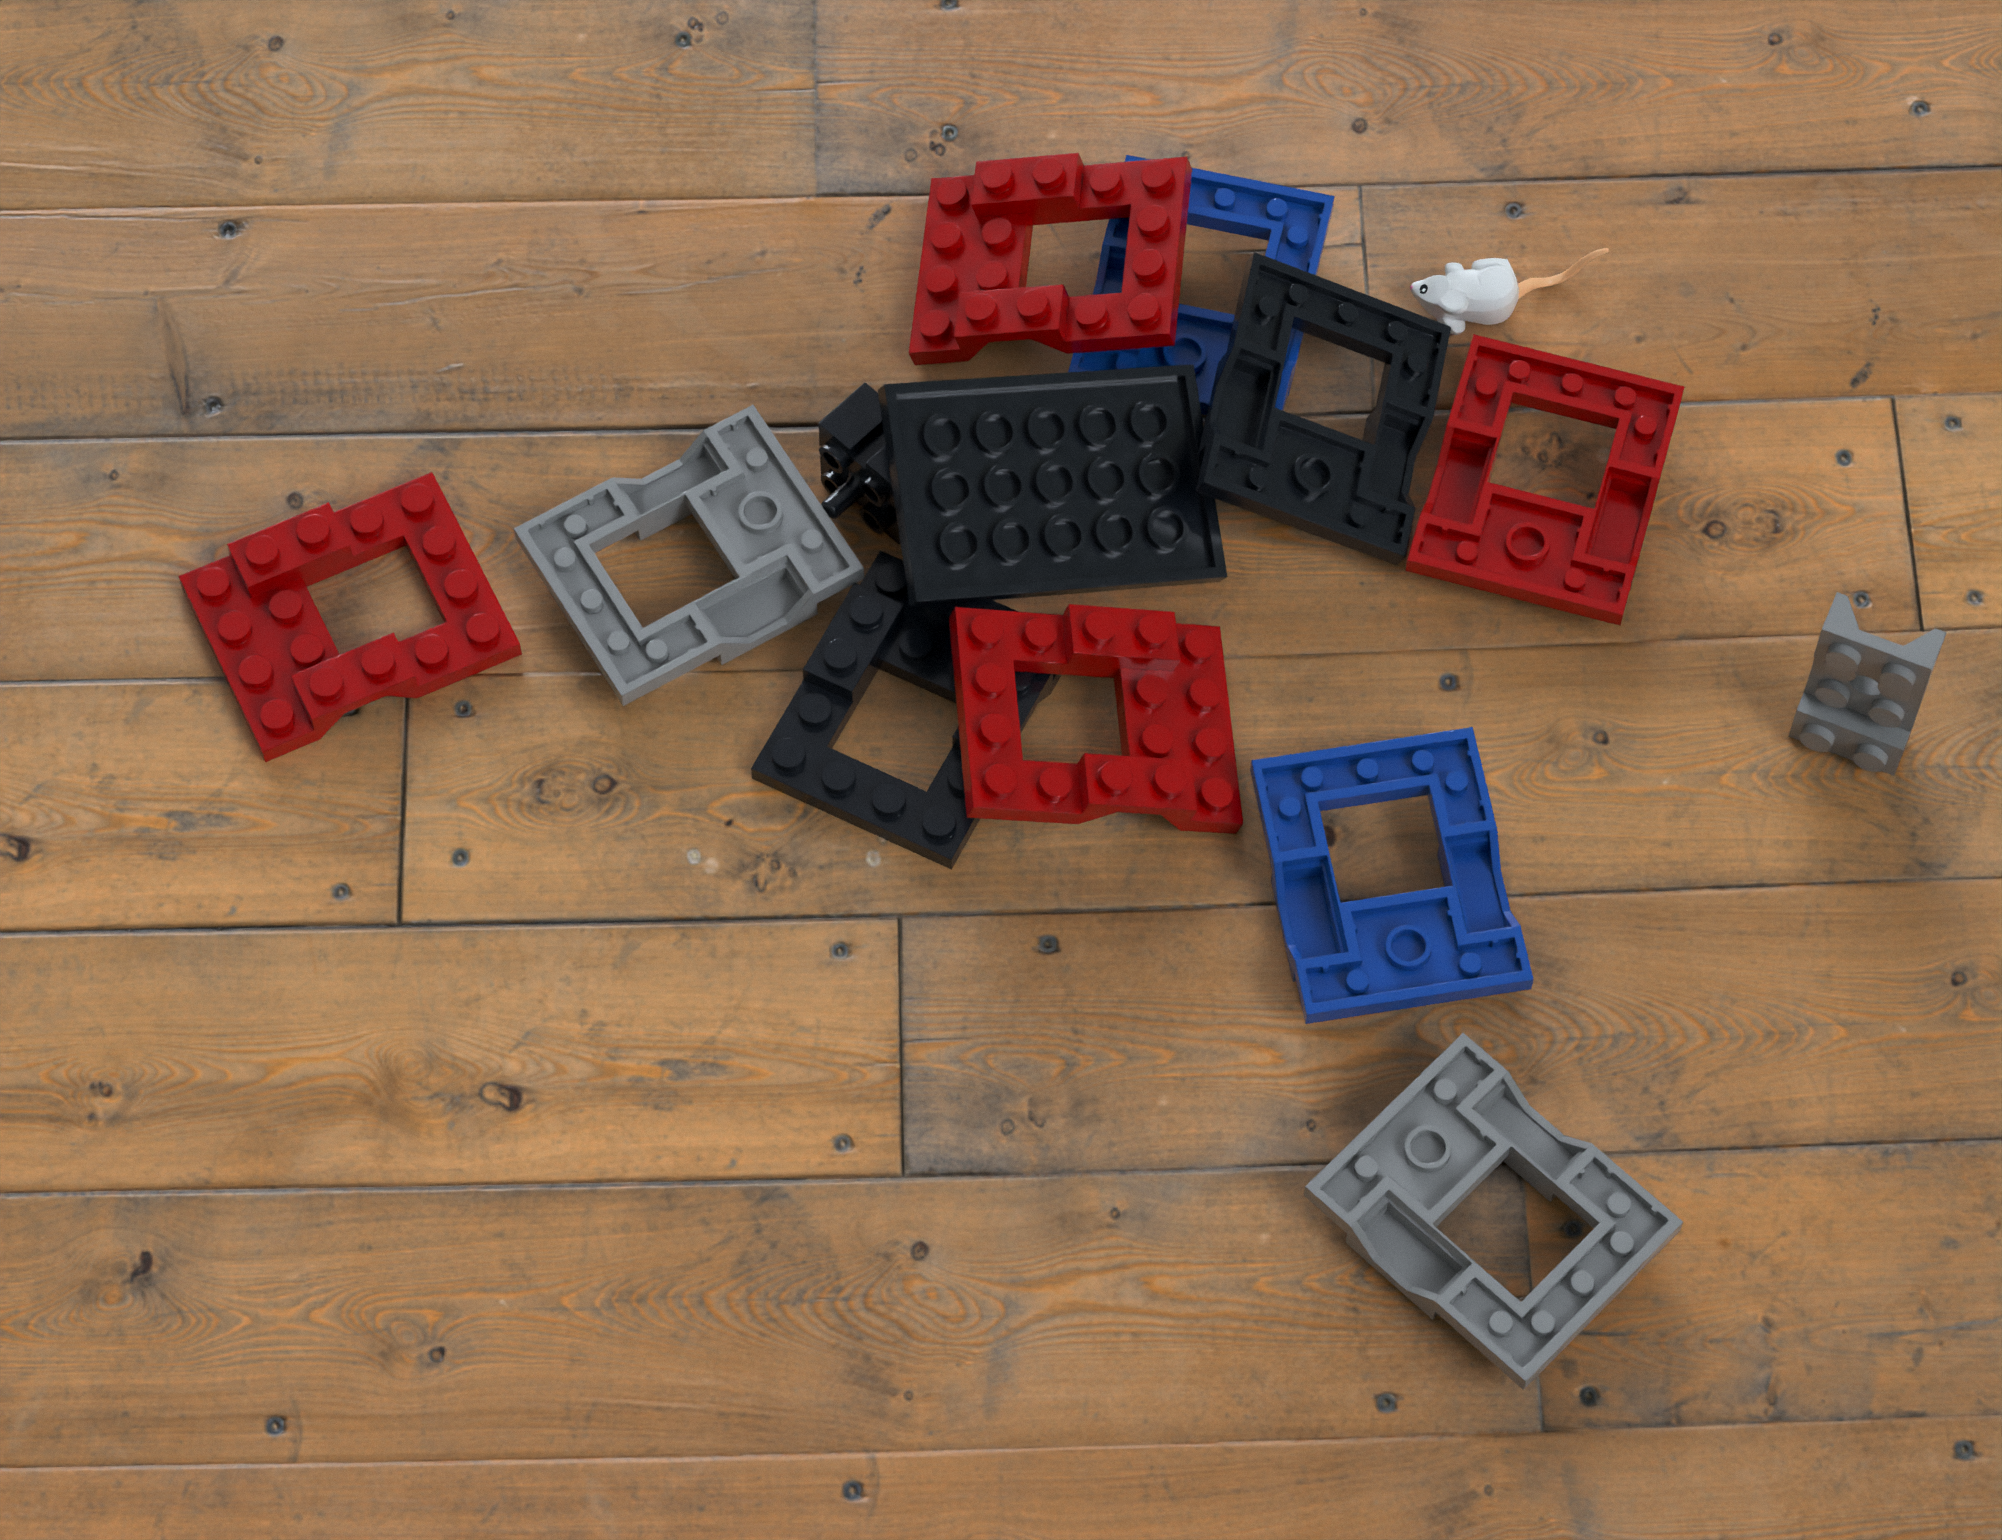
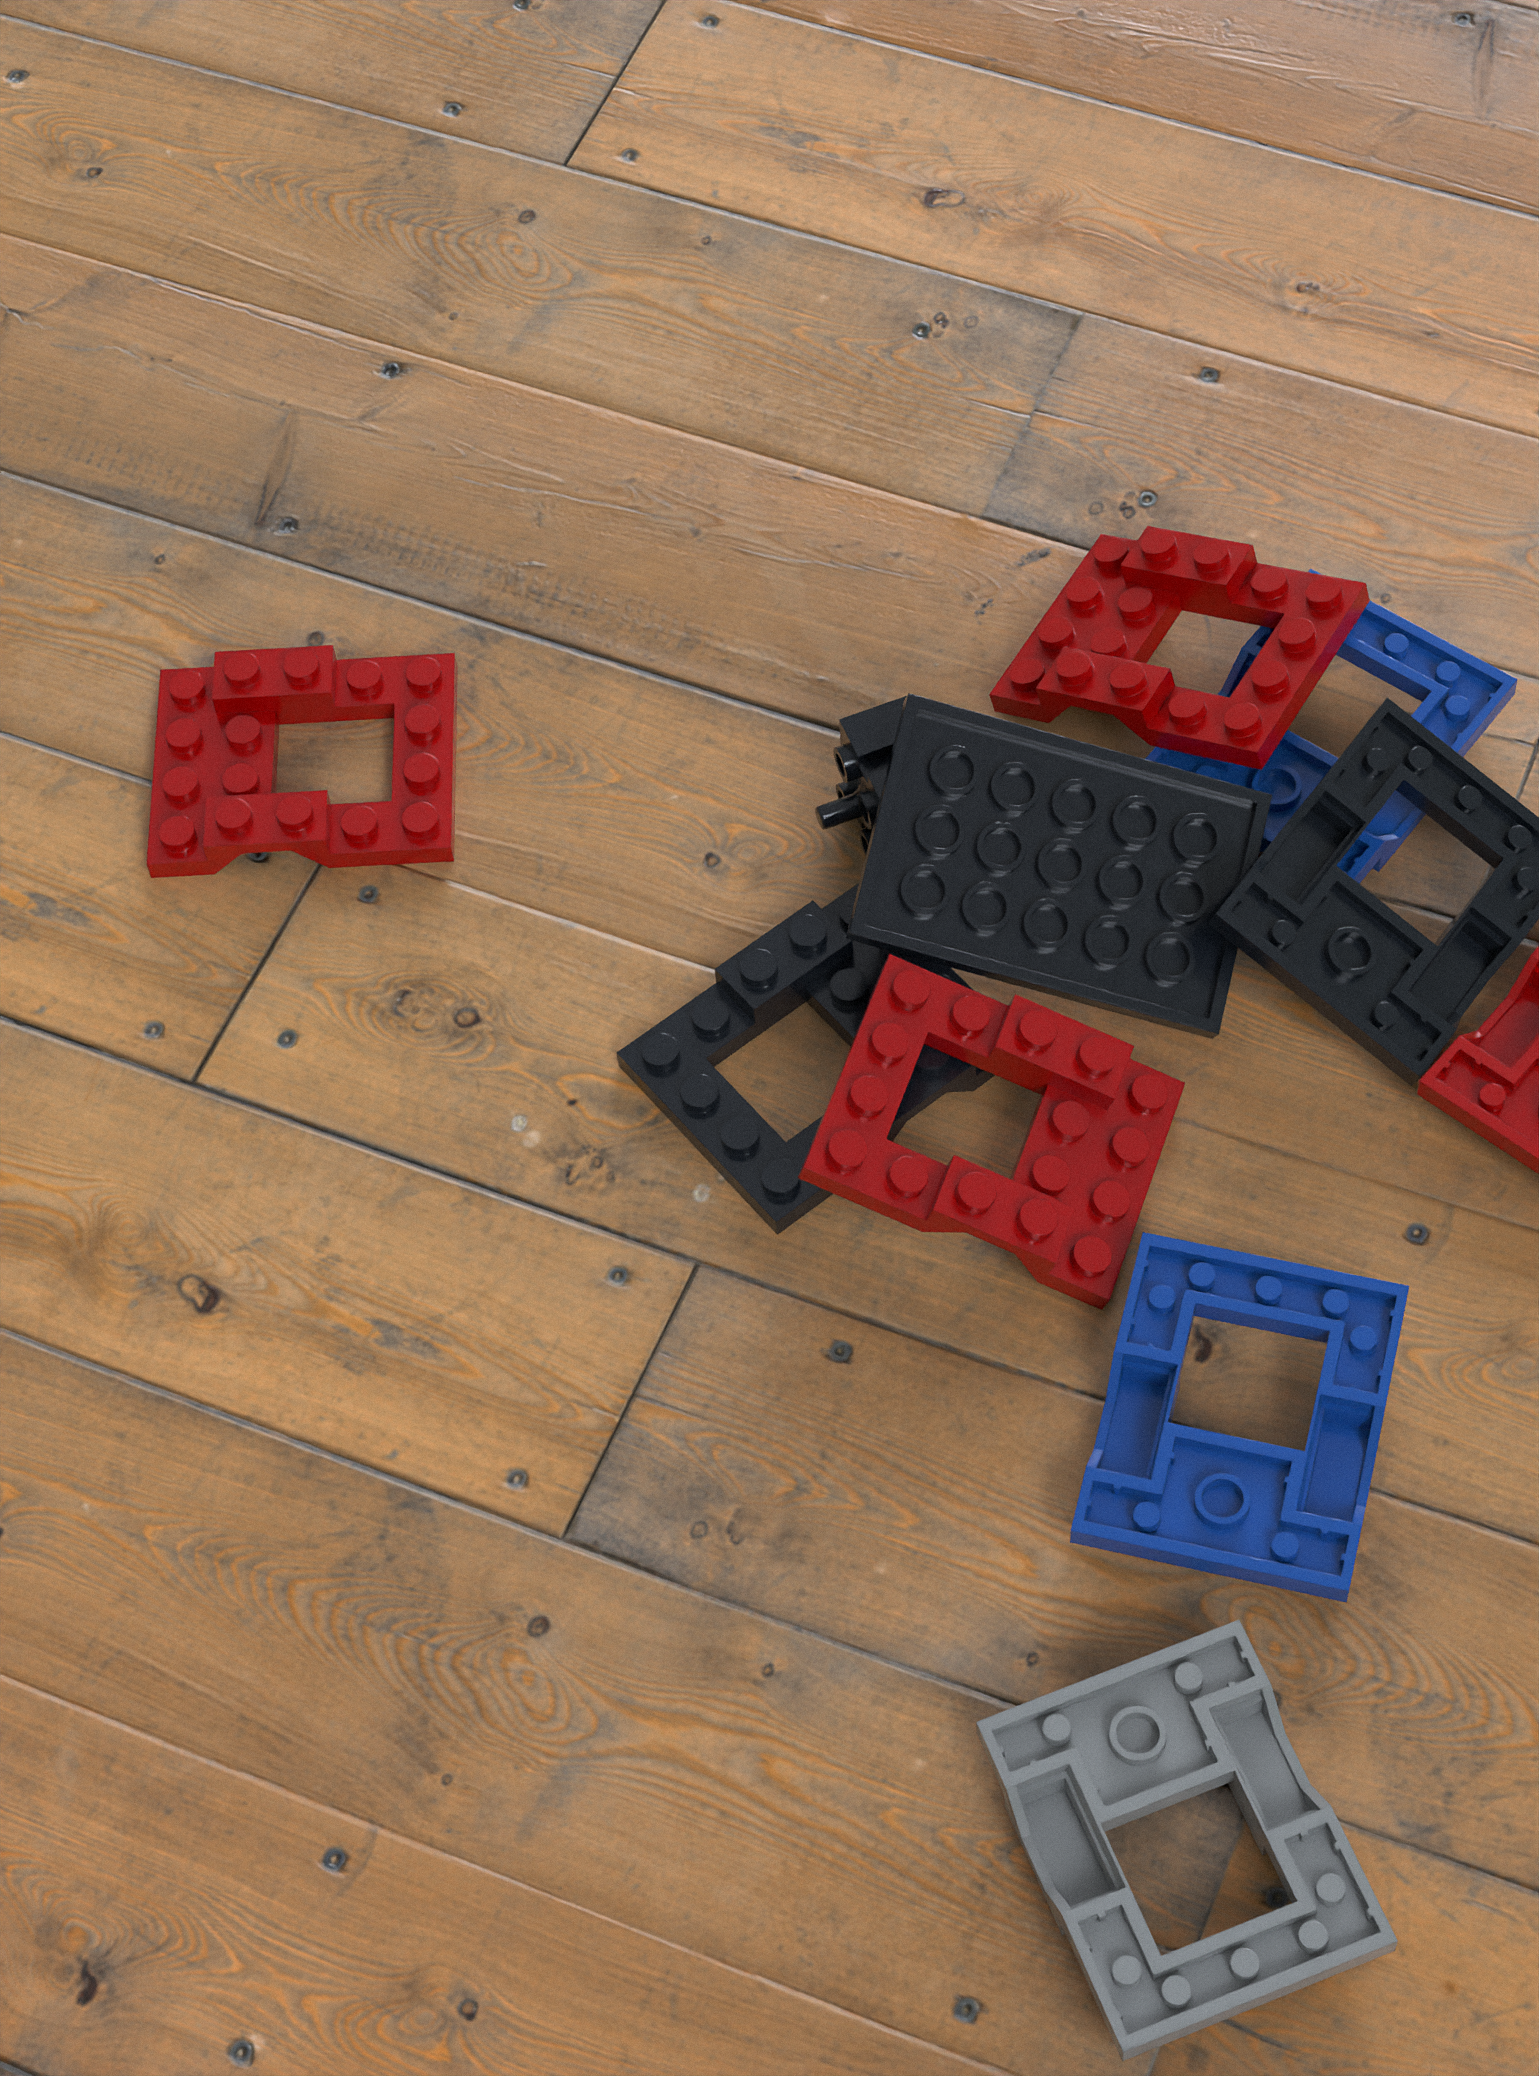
camera: 30 degrees right, 5 degrees down
(755, 516) = (746, 814): light grey piece -> none

